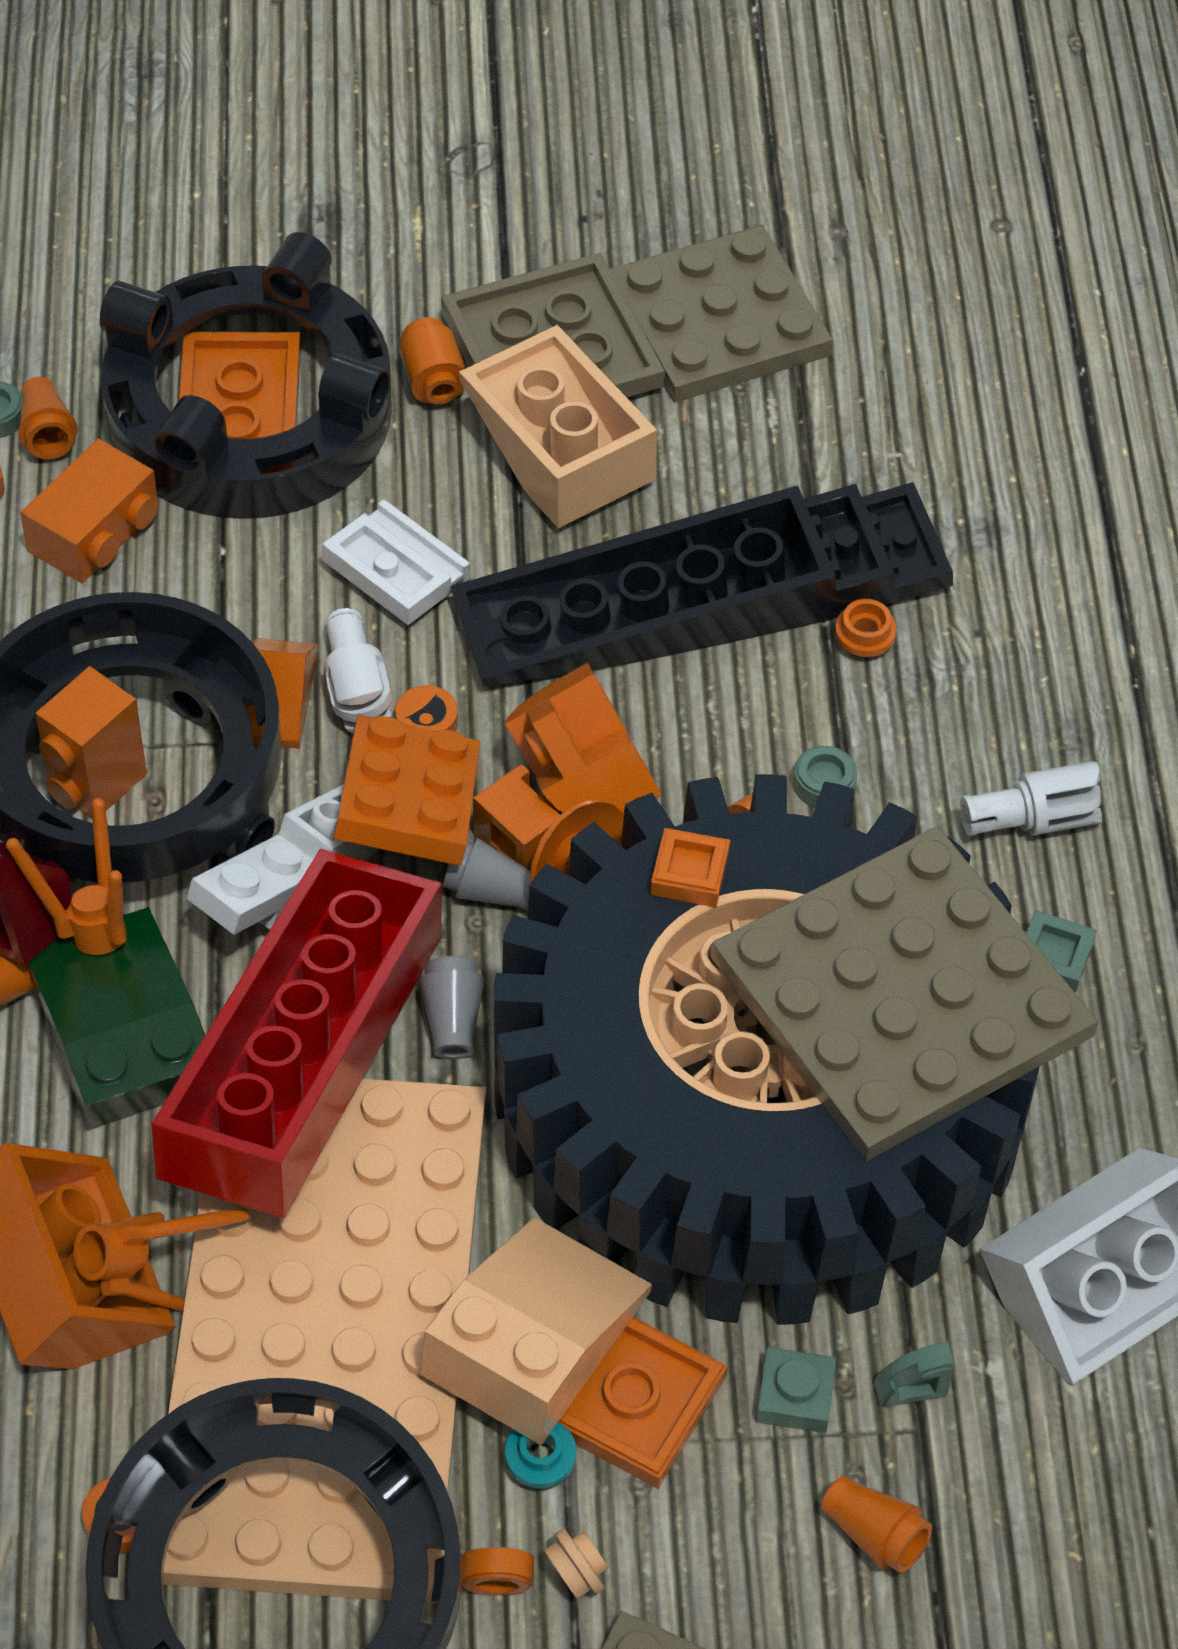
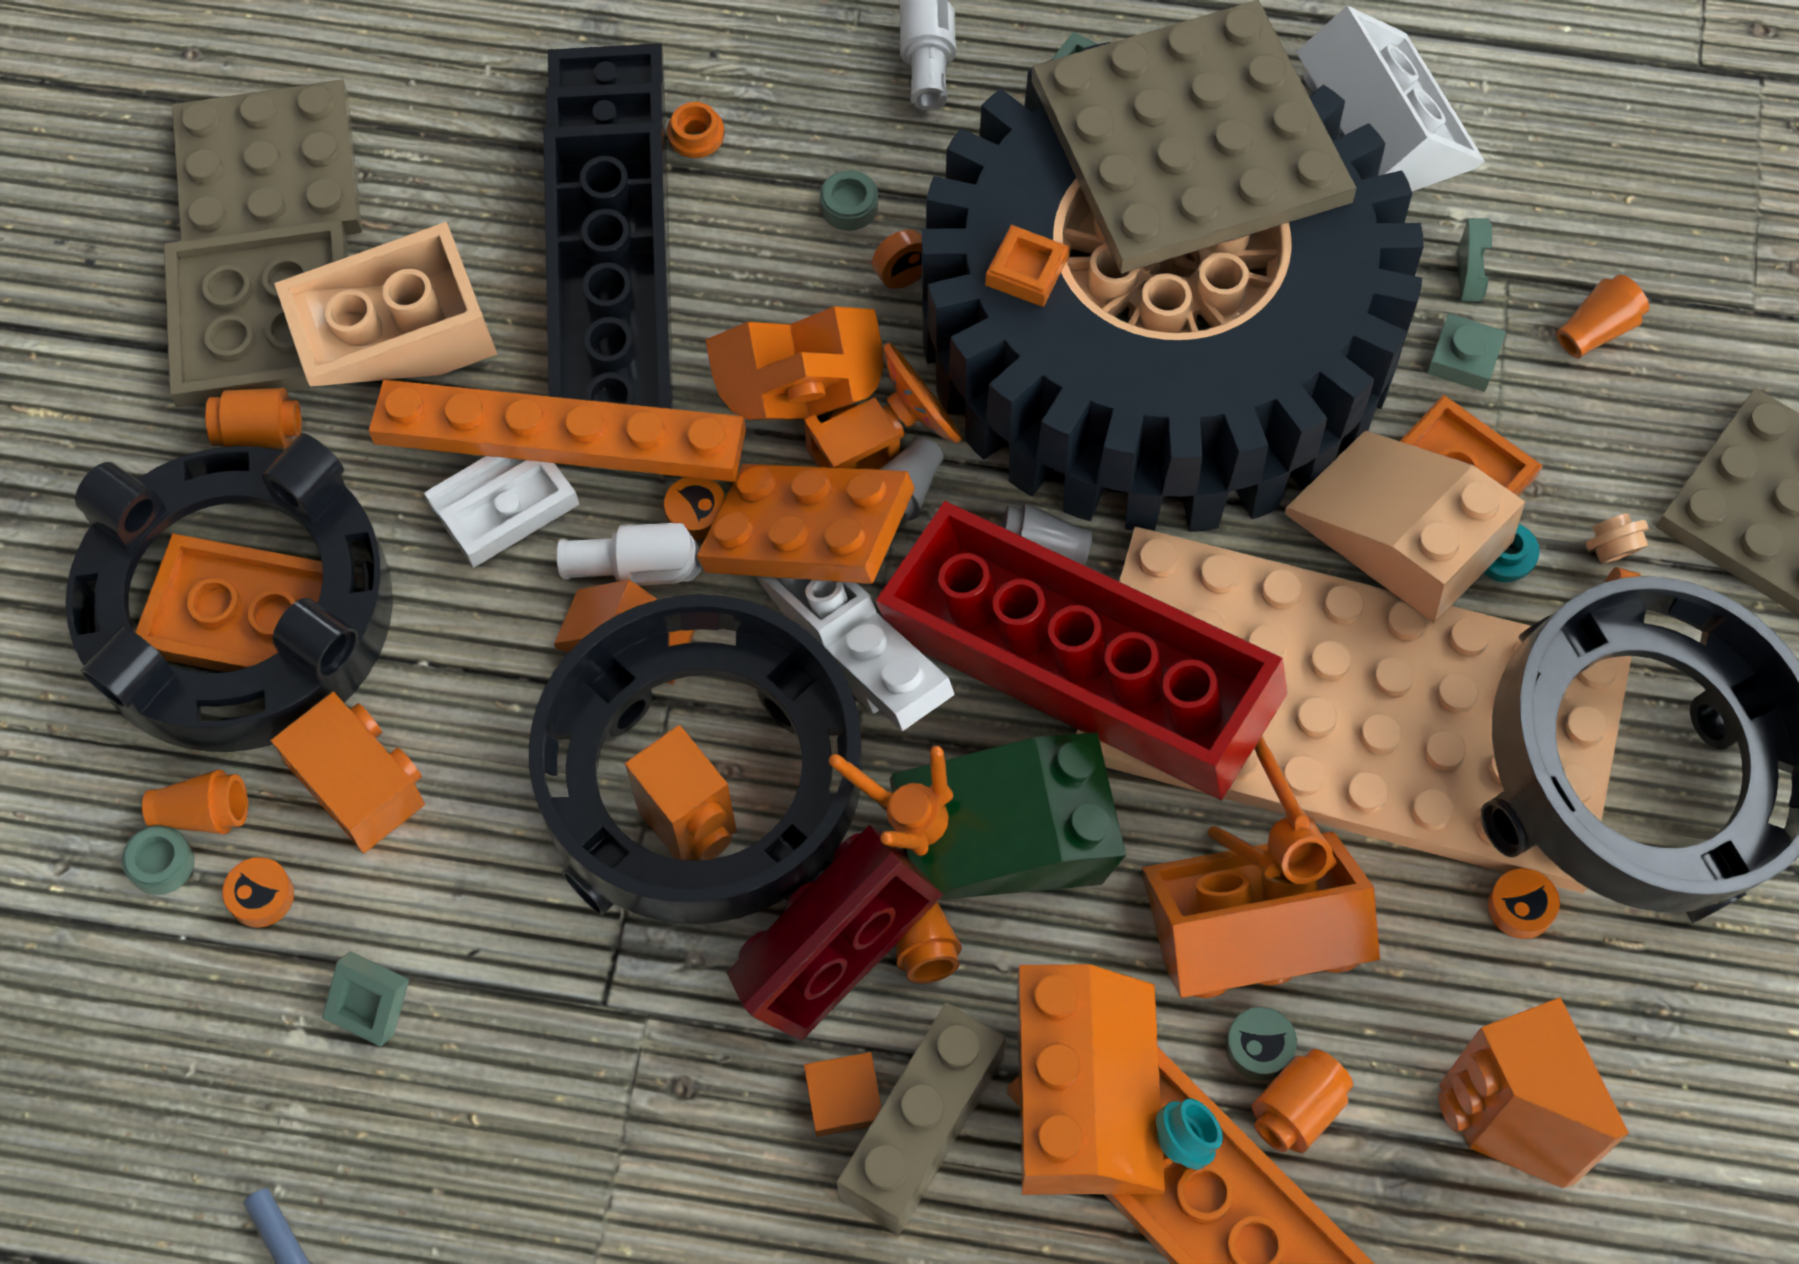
camera: 75 degrees left, 10 degrees up
(468, 583) = (558, 430): none -> orange plate

